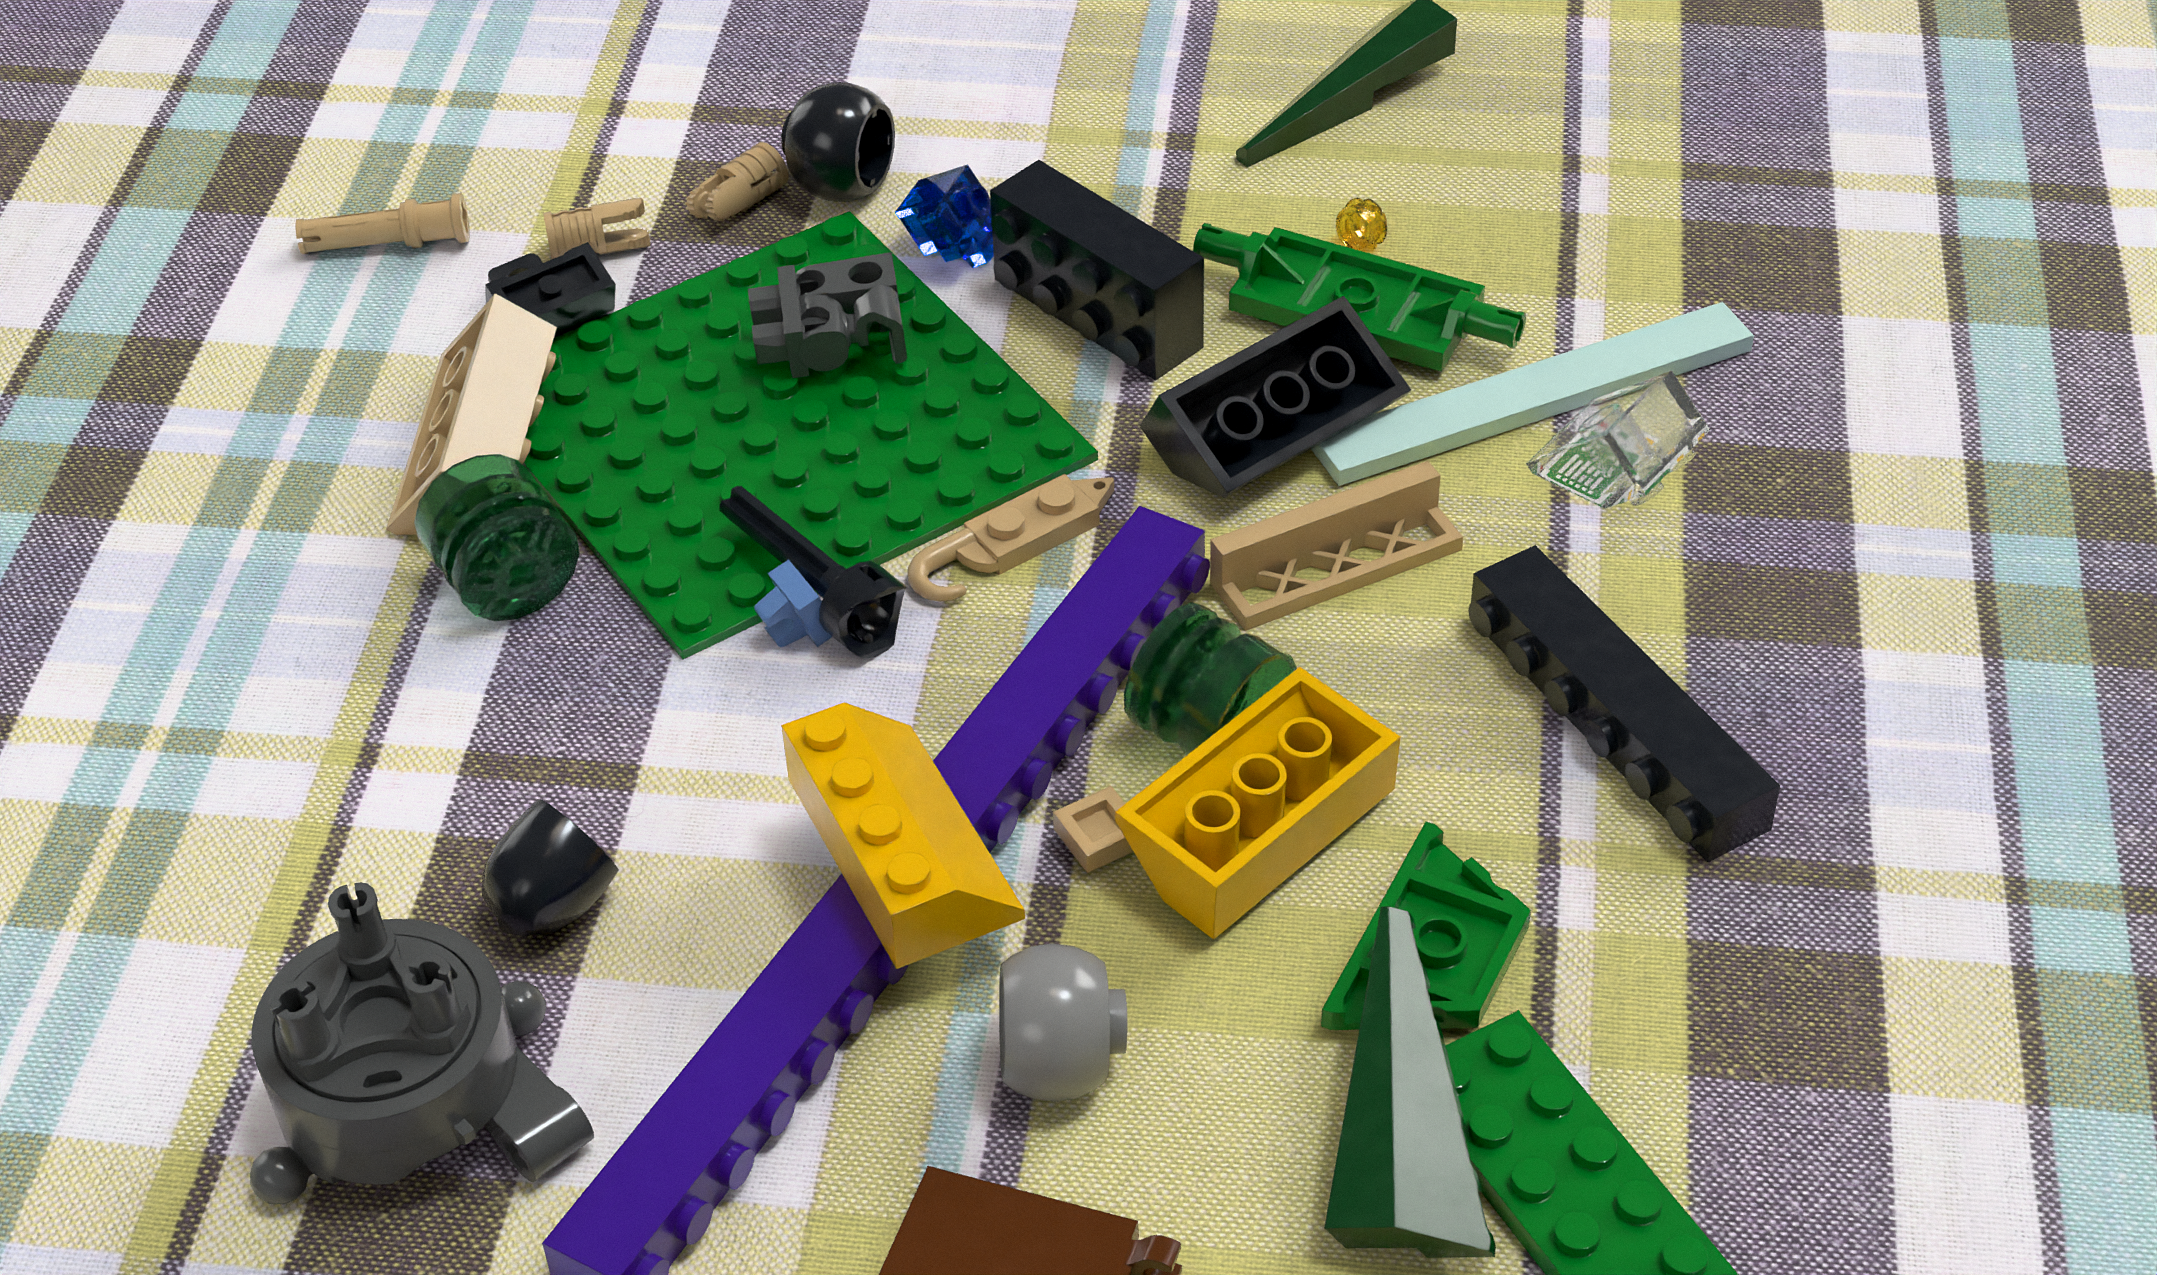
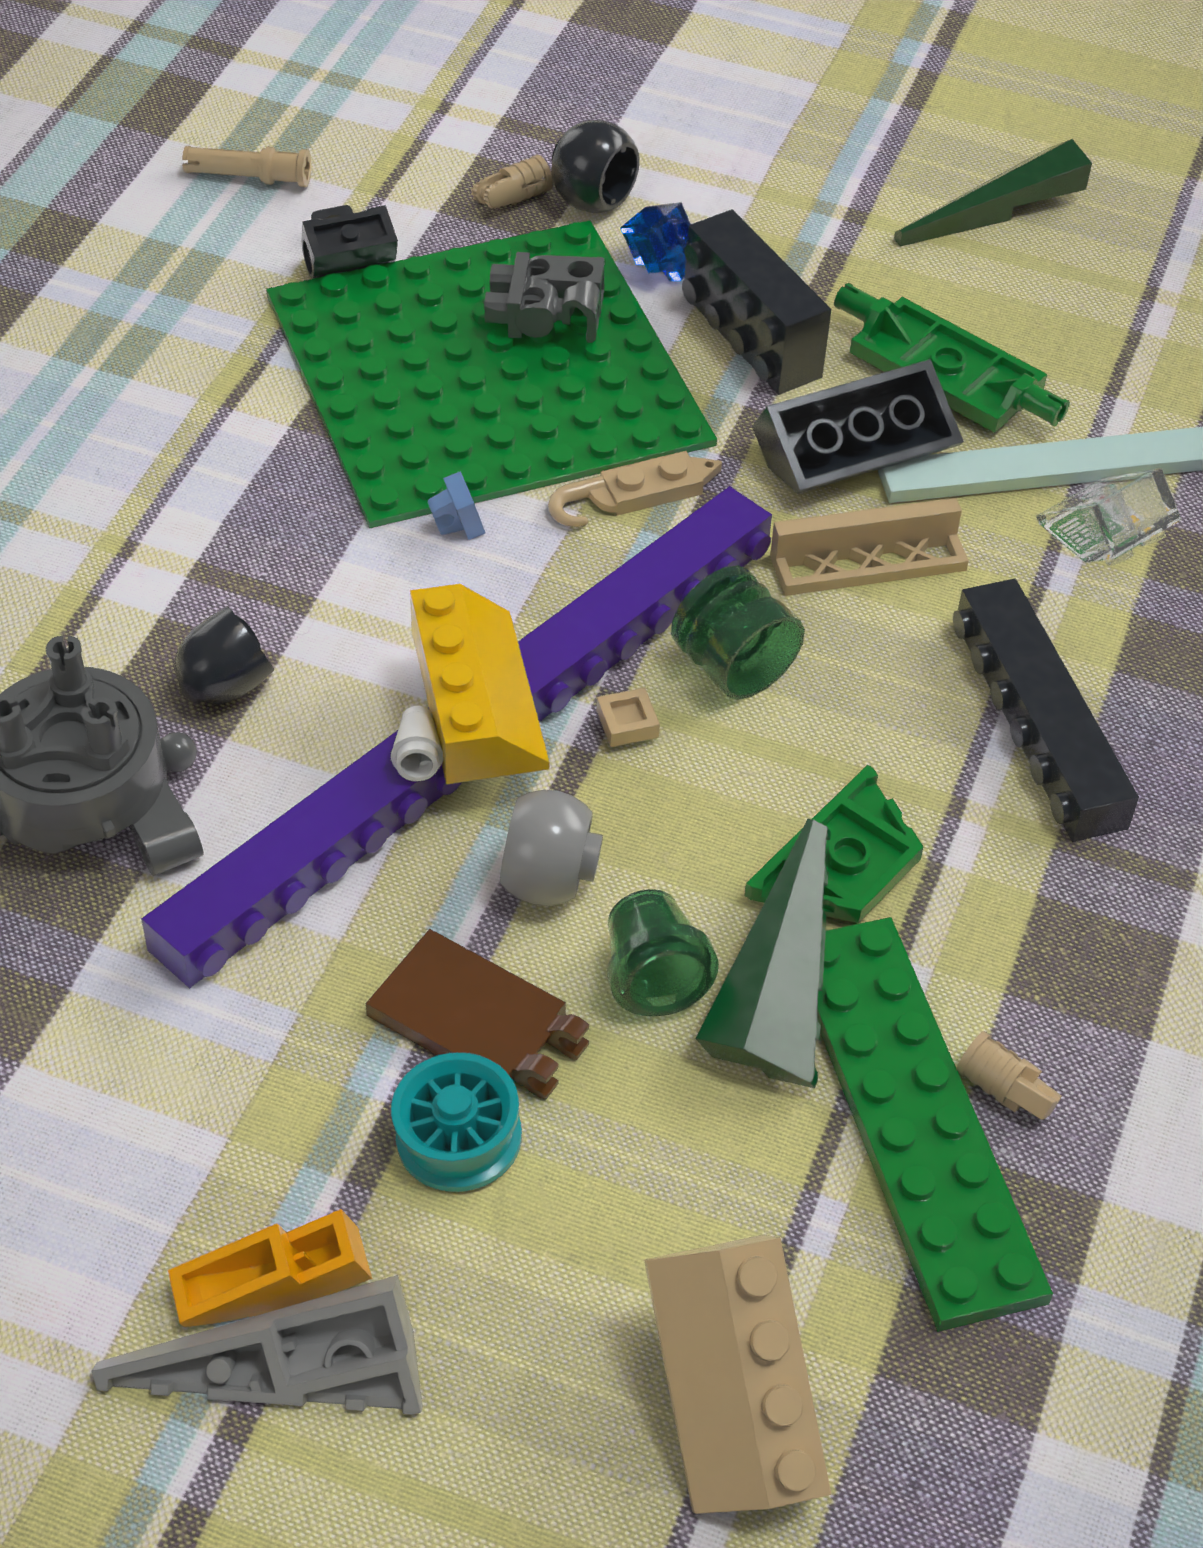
camera: 10 degrees right, 5 degrees up
(478, 400) = (269, 323): tan slope -> none
(496, 537) = (257, 410): clear green wheel -> none
(584, 225) = (393, 193): tan hinge -> none
(846, 926) = (417, 746): none -> white cone
(855, 601) = (500, 510): black piece -> none
(1241, 1130) = (657, 955): none -> clear green piece
(1259, 800) = (748, 721): yellow slope -> none
(1361, 224) = (970, 308): clear yellow plate -> none
(1734, 1183) = (1007, 1077): none -> tan hinge

